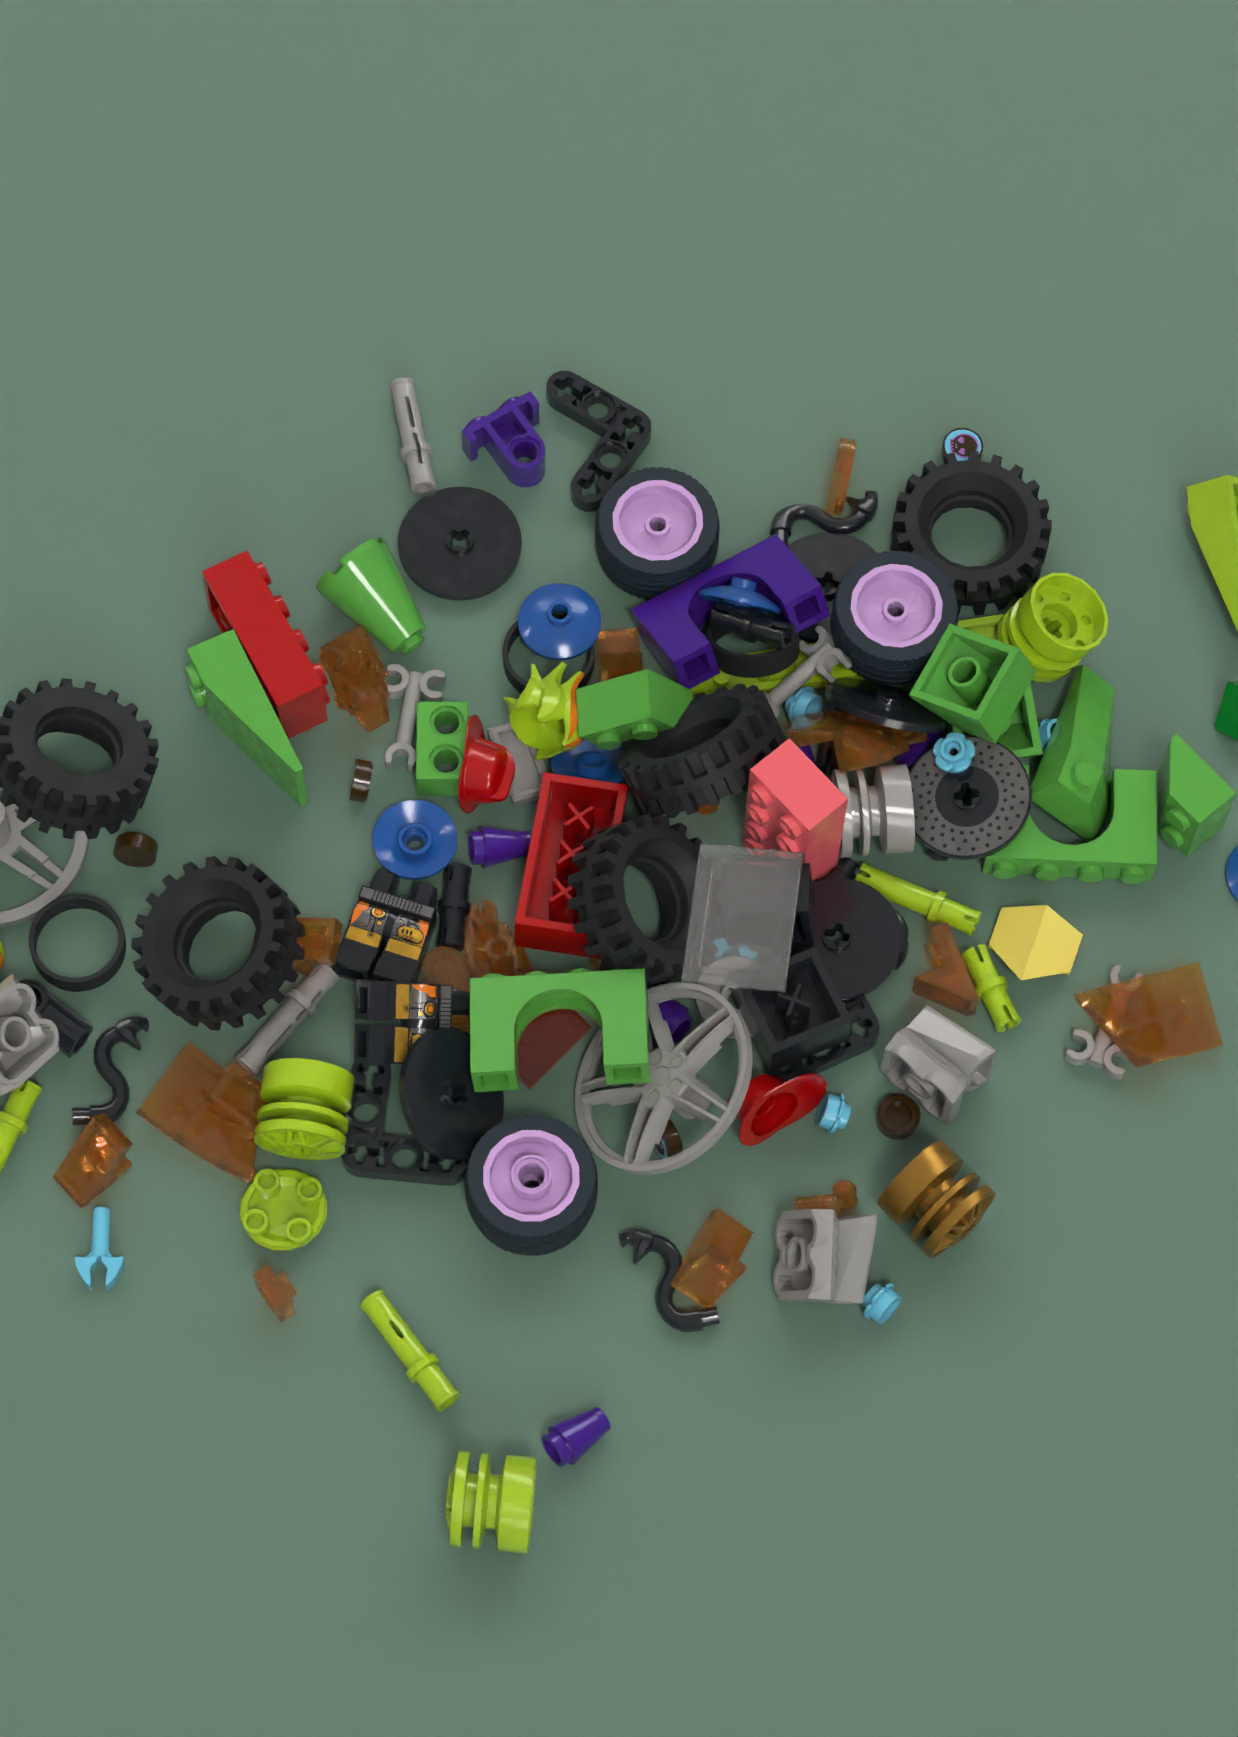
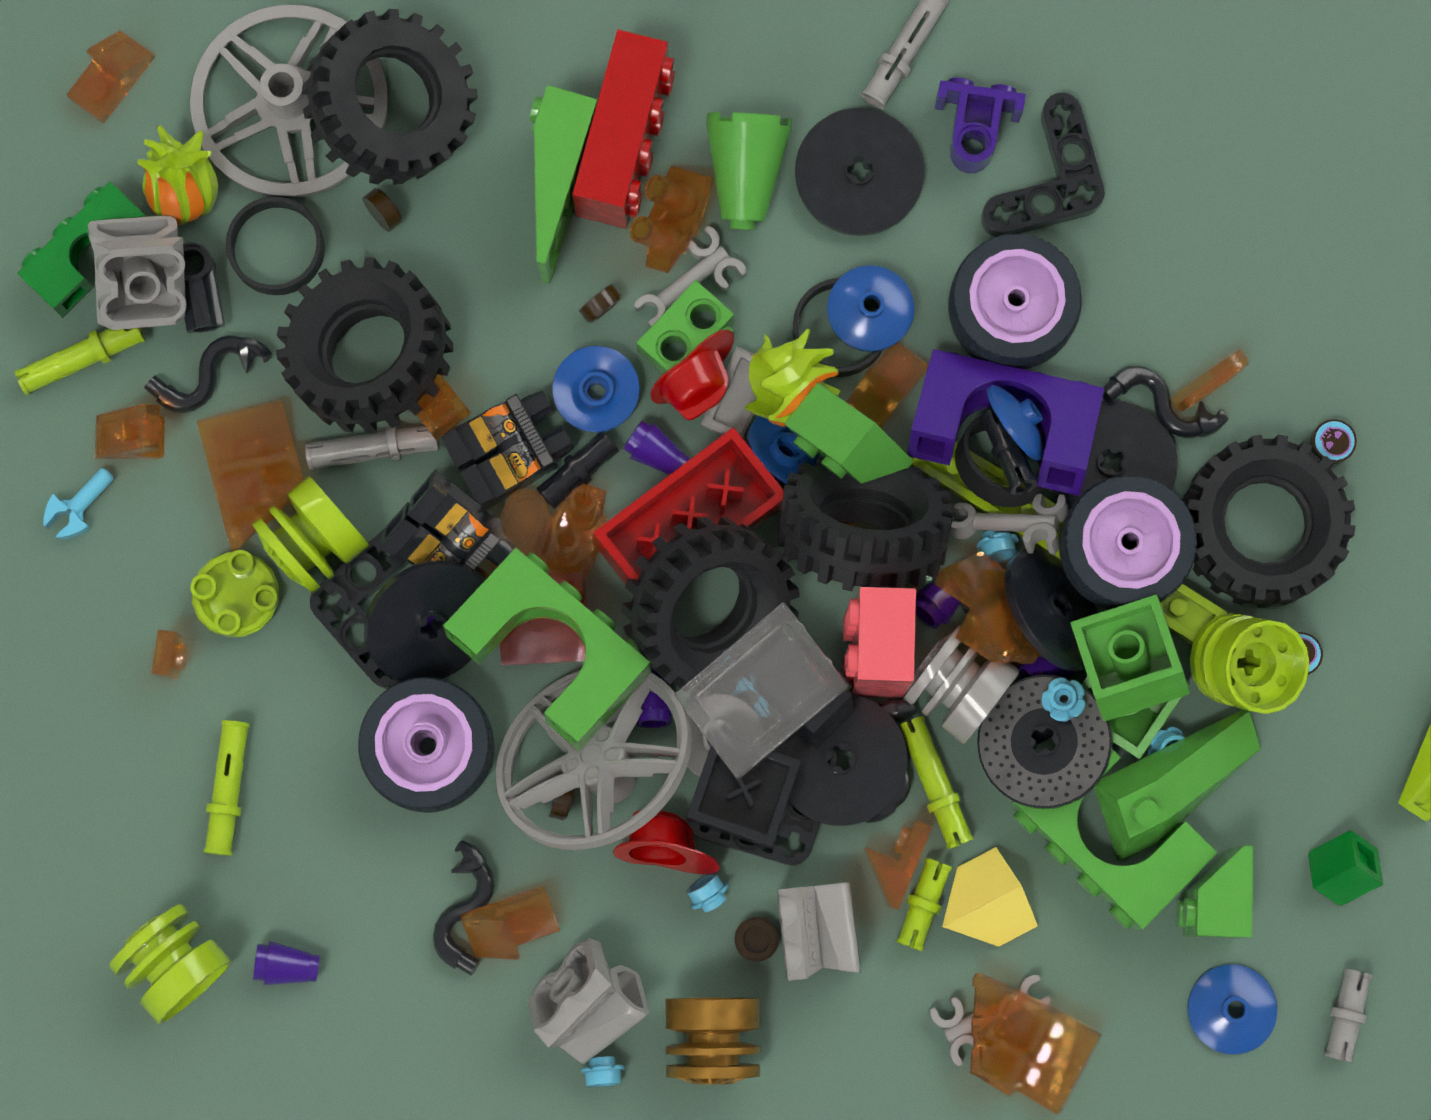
camera: 45 degrees right, 15 degrees up
(841, 1201) = (634, 961): clear orange arm -> none

